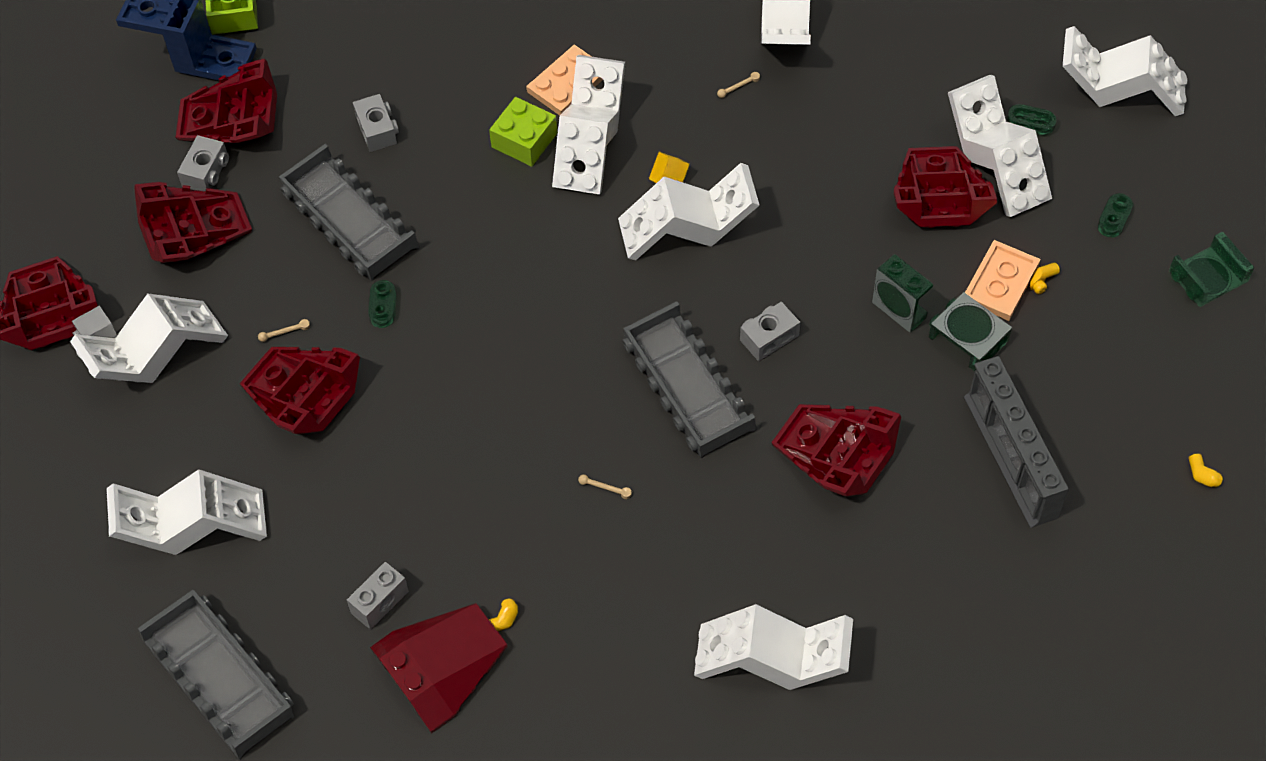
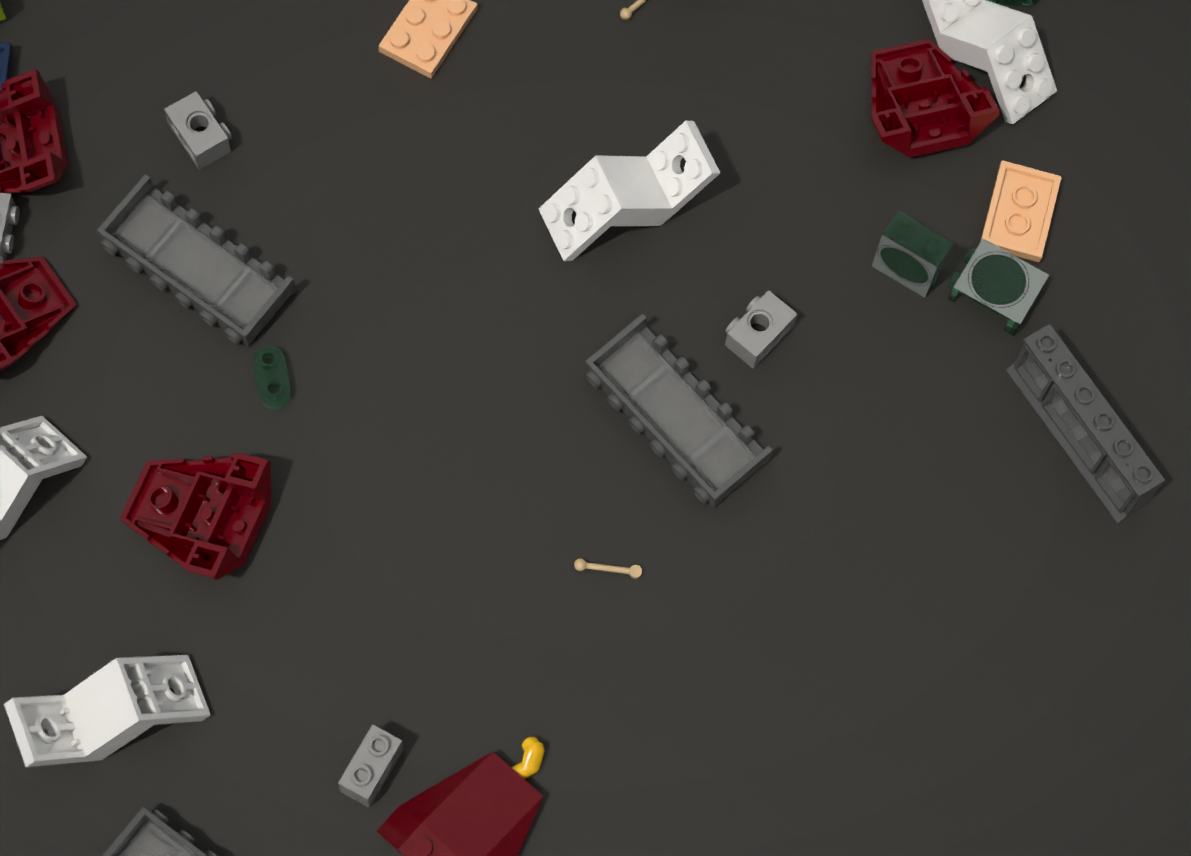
camera: 20 degrees left, 10 degrees up
(304, 325) = (179, 423): tan hinge -> none
(523, 131) = (392, 111): lime brick -> none
(588, 124) = (476, 91): white bracket -> none
(668, 167) = (587, 134): yellow panel -> none
(774, 647) = (862, 740): white bracket -> none
(840, 446) = (876, 464): dark red wedge -> none
(1037, 282) = (1065, 196): yellow arm -> none
(1116, 213) = (1135, 97): clear green plate -> none

